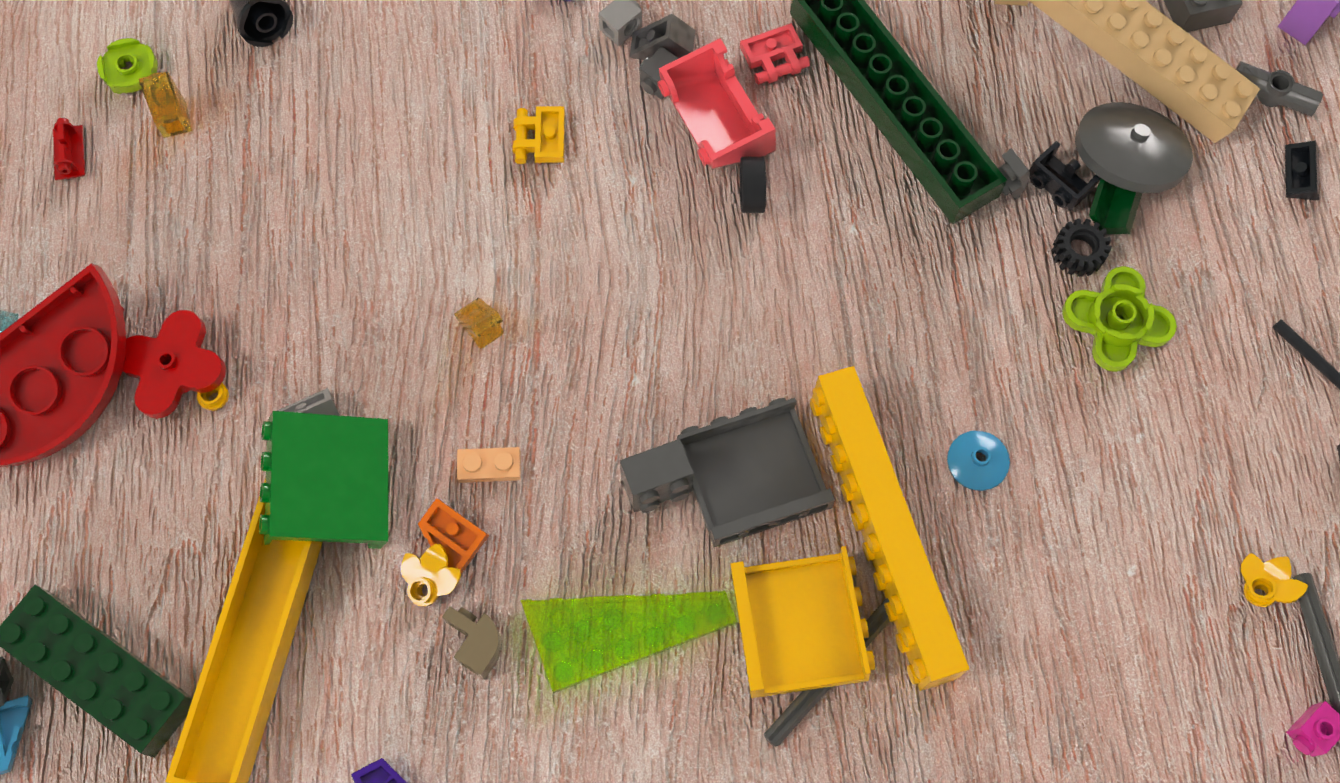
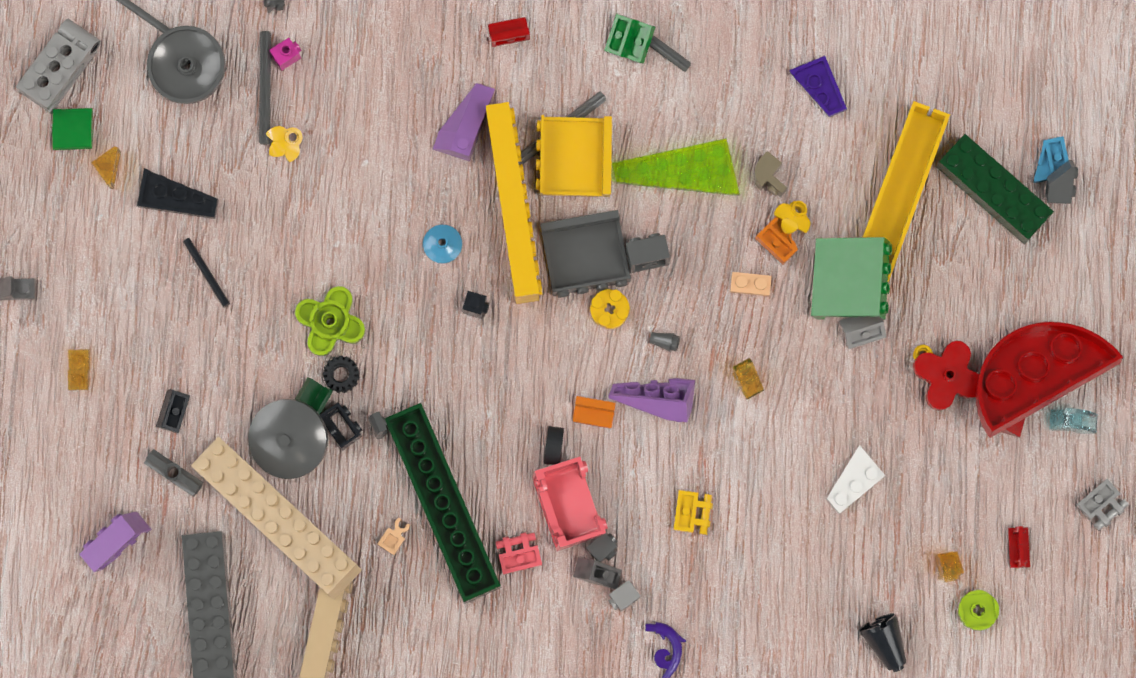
camera: 170 degrees left, 10 degrees up
(306, 210) = (855, 480): none -> white wing
(605, 277) = (666, 400): none -> medium lavender wedge
(610, 359) = (667, 341): none -> dark grey cone
(701, 249) = (594, 412): none -> orange panel
(706, 380) = (605, 319): none -> yellow plate
(908, 368) = (475, 305): none -> black brick
(950, 50) = (392, 539): none -> light nougat plate
(992, 644) = (463, 127): none -> medium lavender wedge

